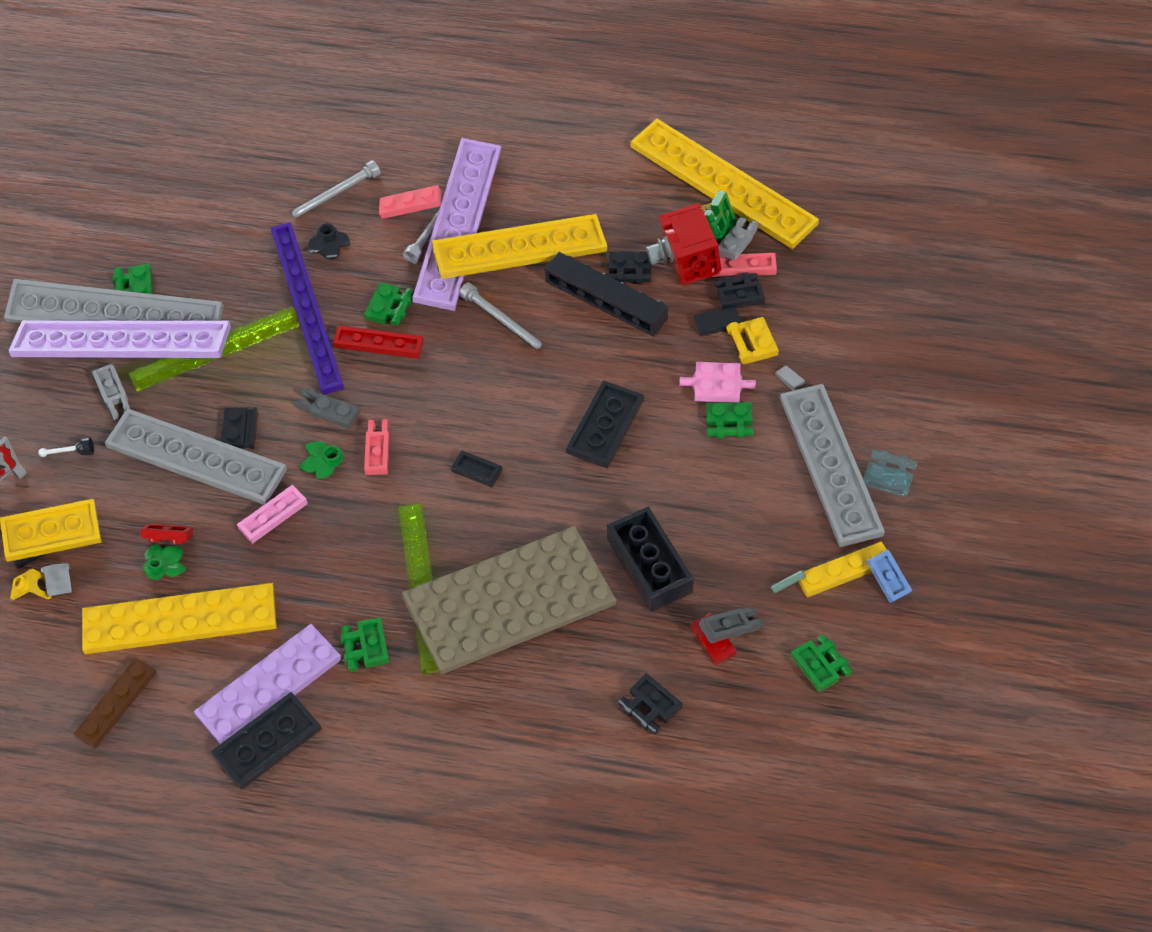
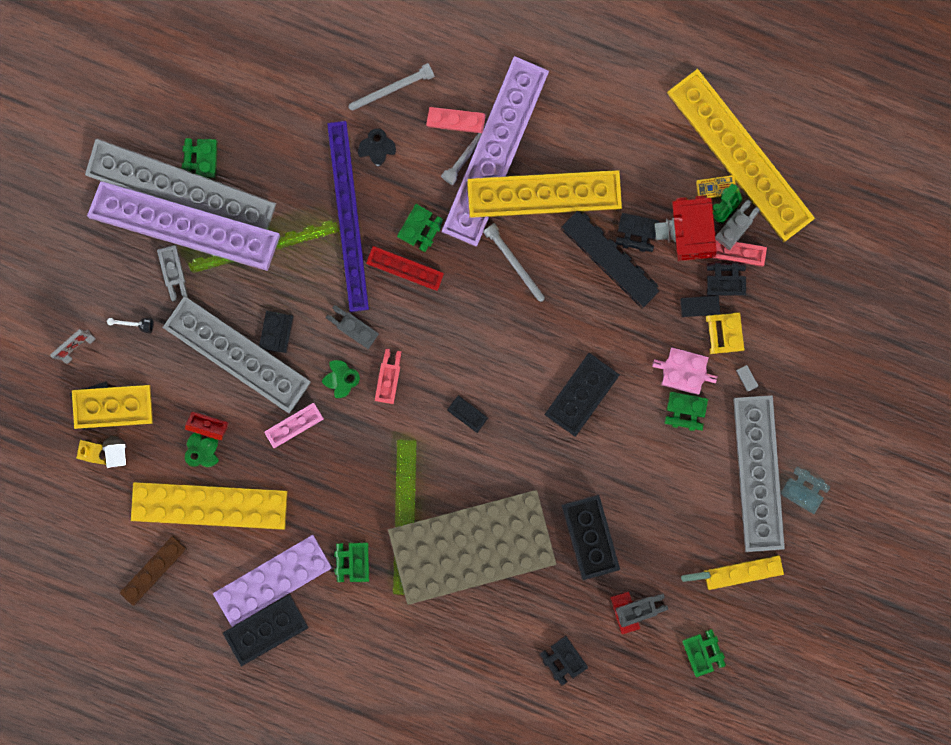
camera: 10 degrees right, 30 degrees up
(889, 576) = (776, 589): medium blue plate -> none

